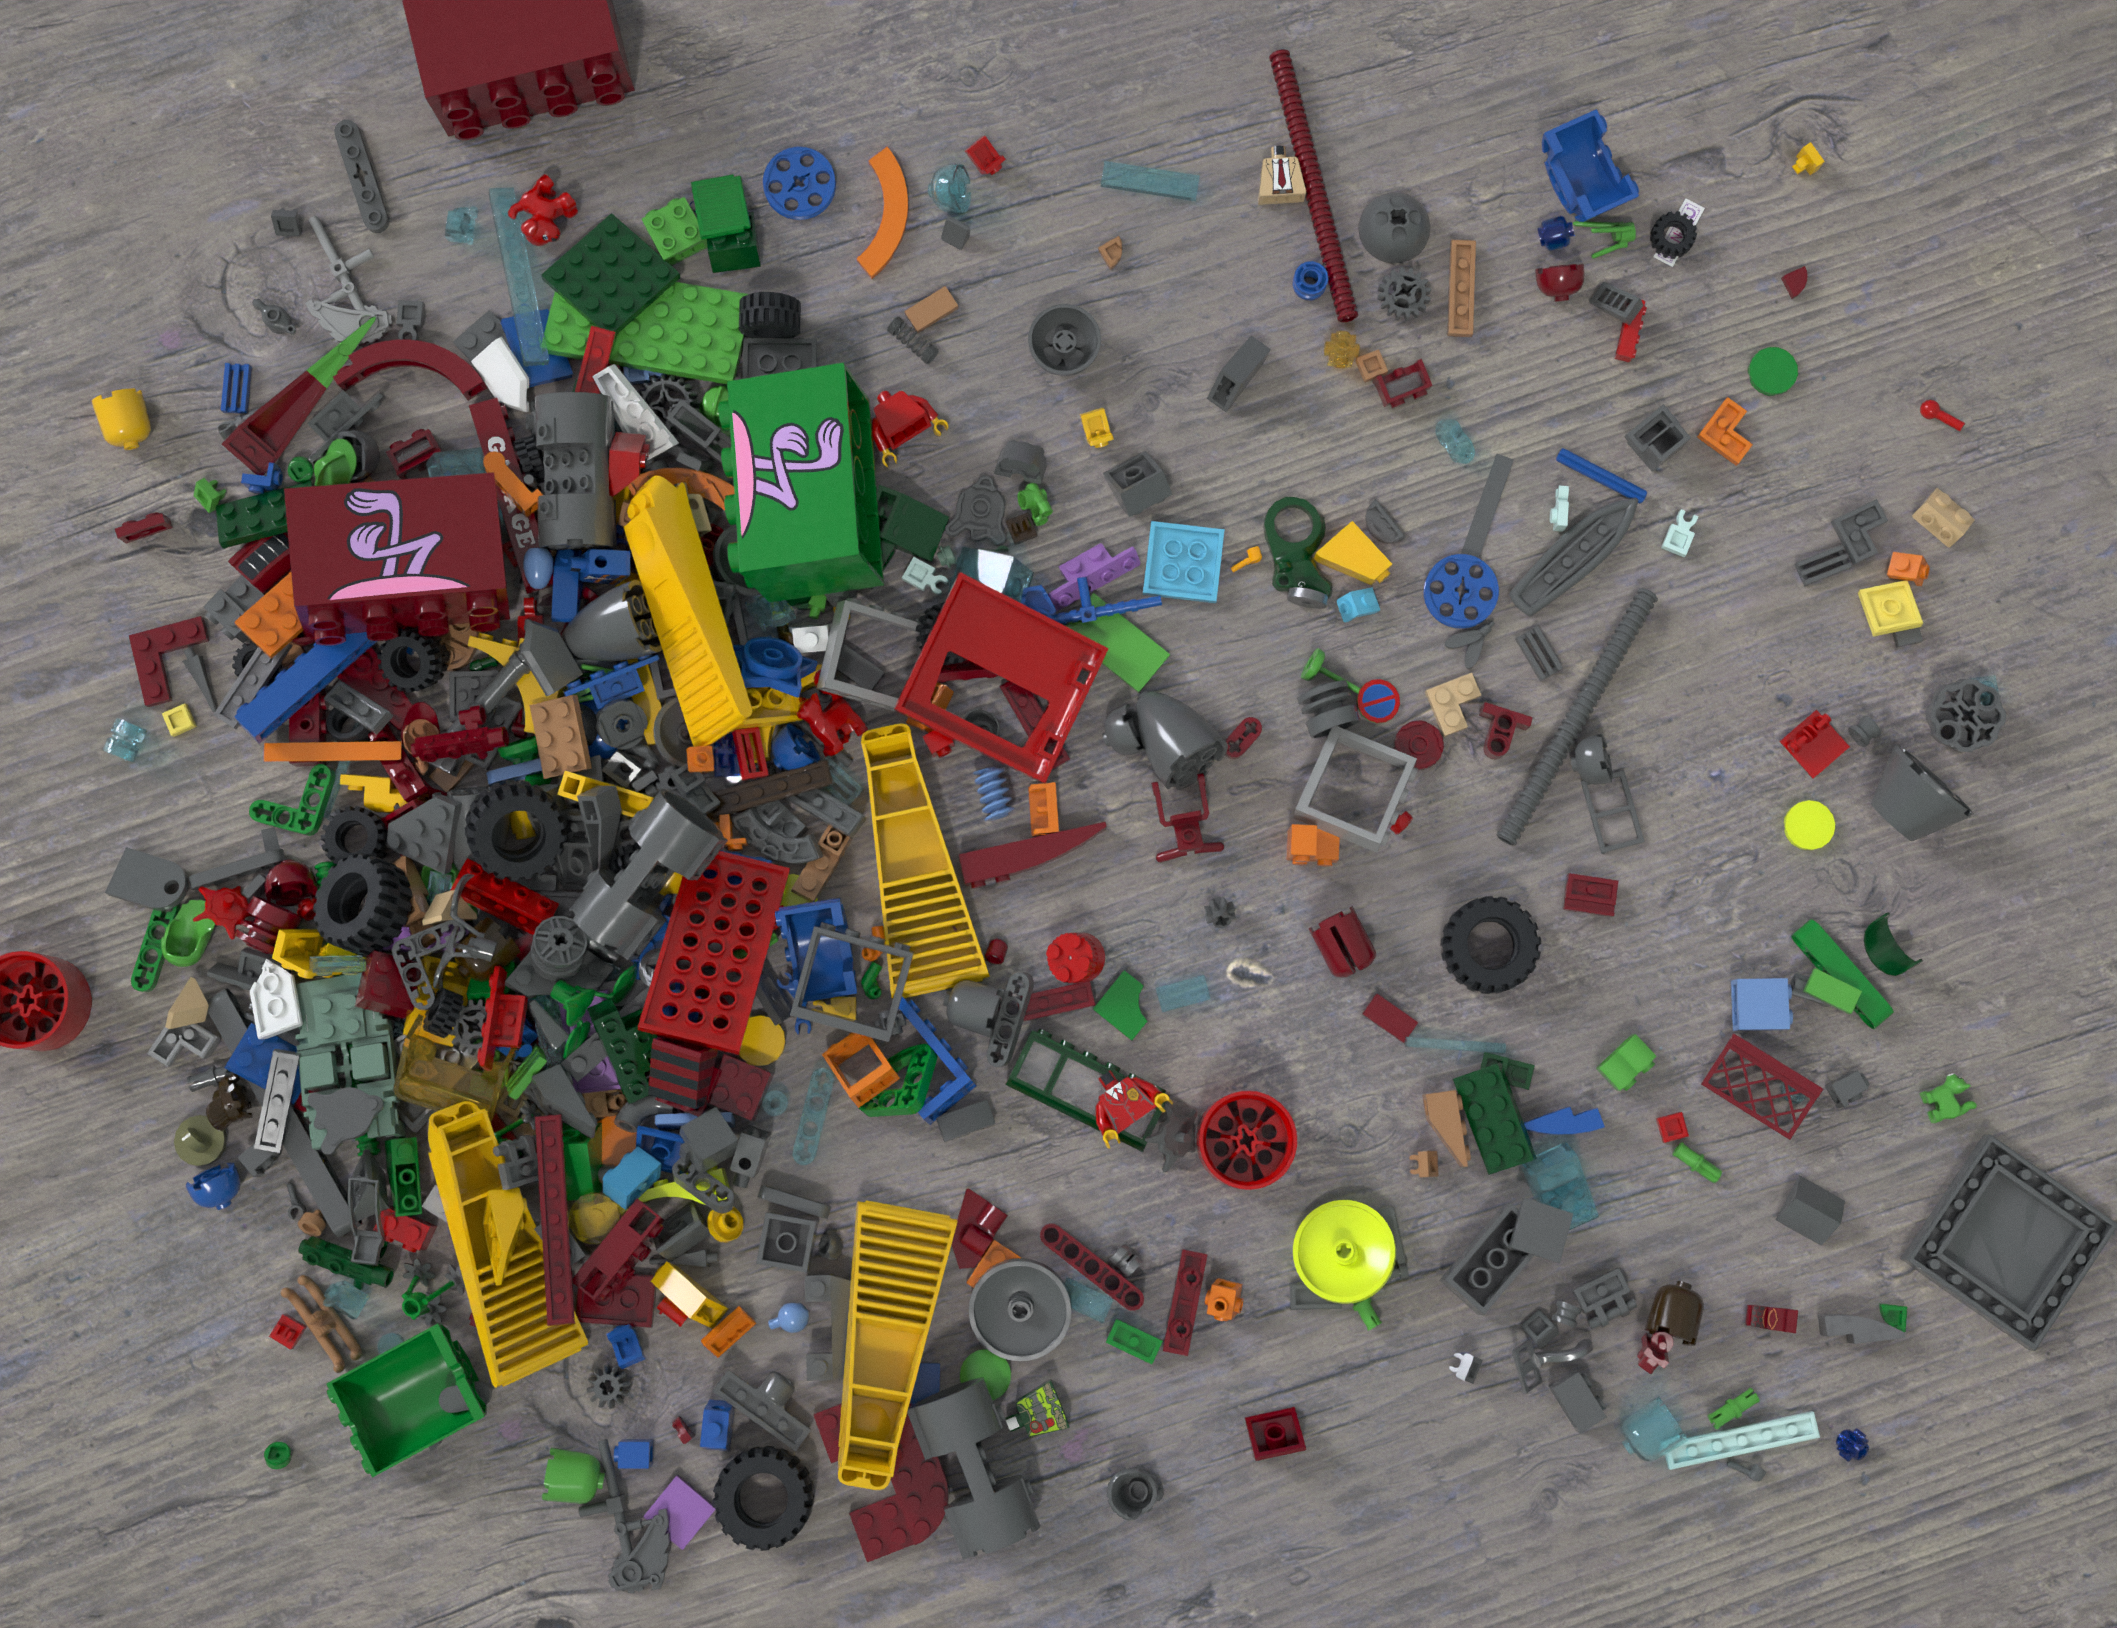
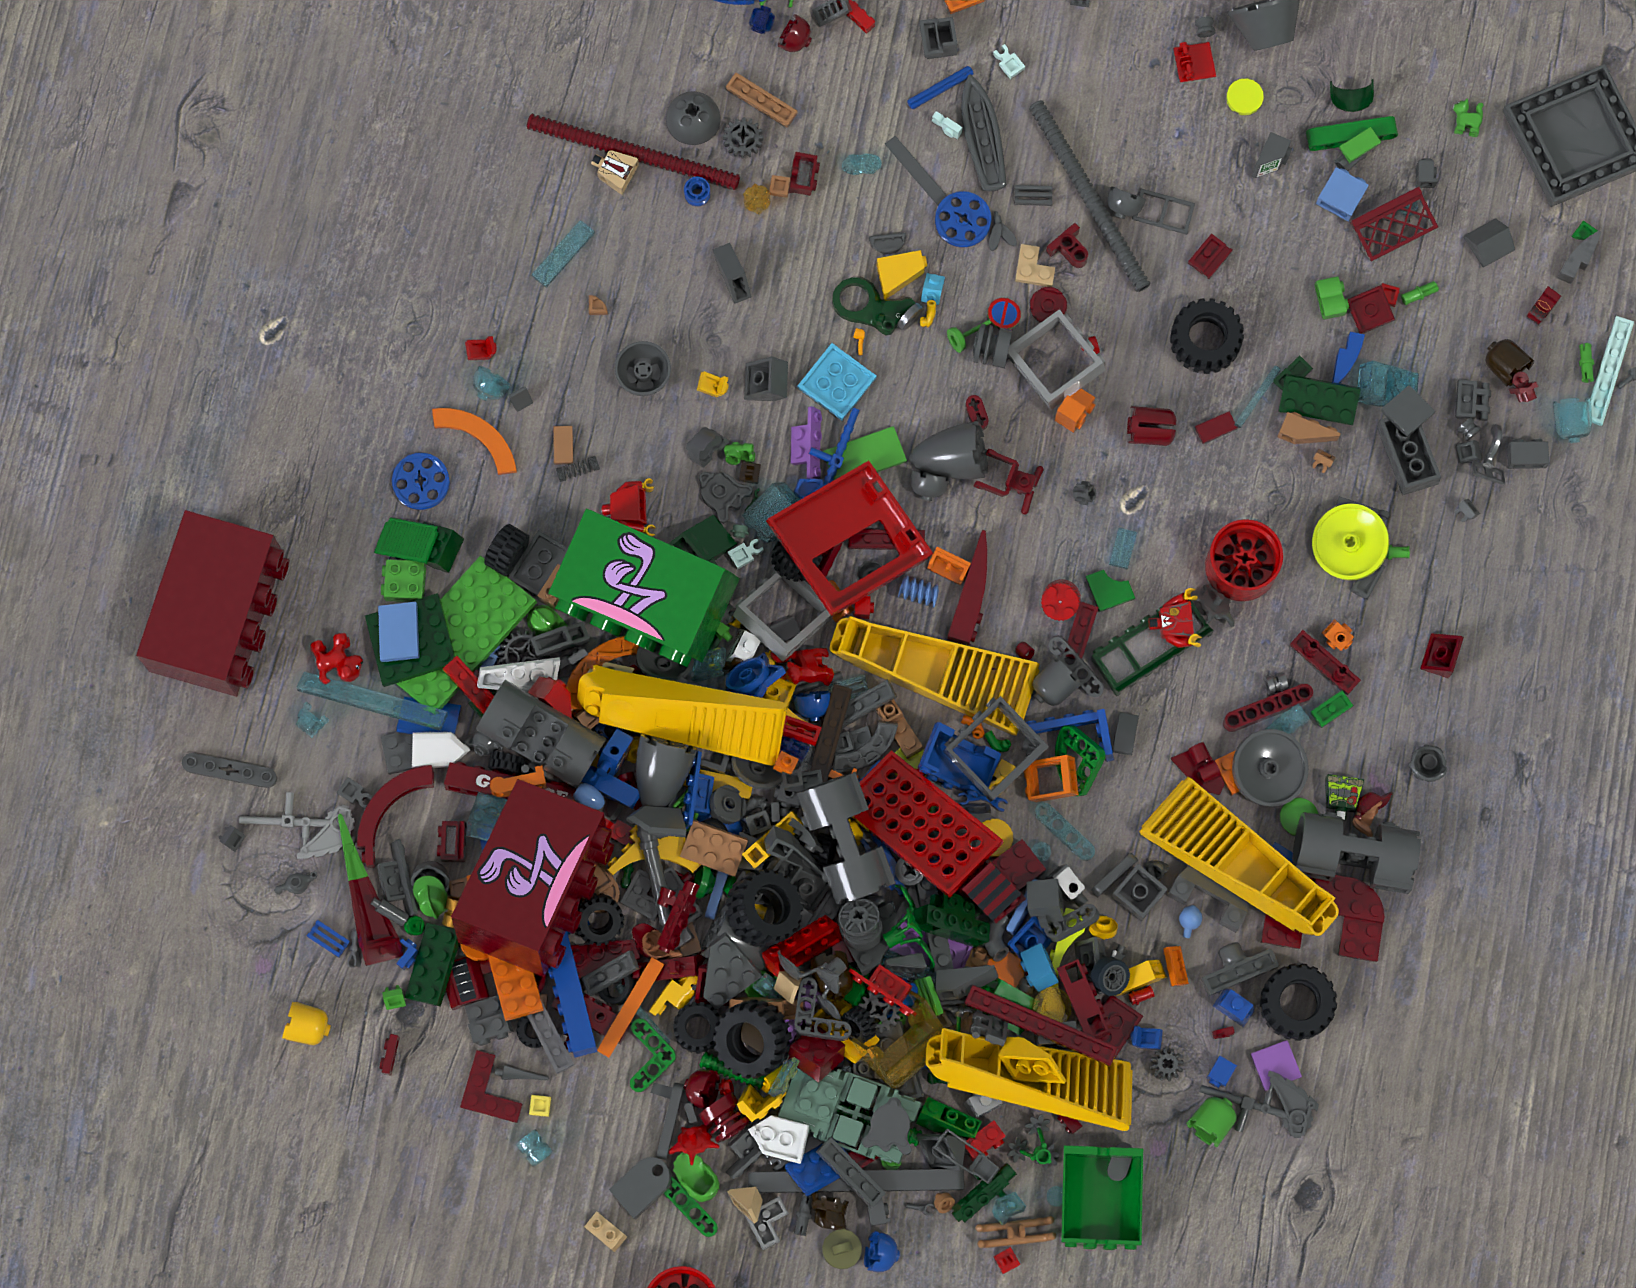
camera: 60 degrees left, 5 degrees down
(76, 870) = (605, 1231): none -> tan plate
(298, 433) = (390, 911): none -> dark grey cylinder
(608, 256) = (398, 631): none -> medium blue tile
(622, 839) = (806, 837): none -> dark grey slope
(663, 1264) = (1118, 973): none -> wheel
(1036, 1449) = (1366, 810): none -> hair
(1327, 619) = (930, 314): none -> yellow arm
(1641, 1117) = (1370, 309): none -> dark red plate
(1755, 896) = (1274, 154): none -> dark grey slope

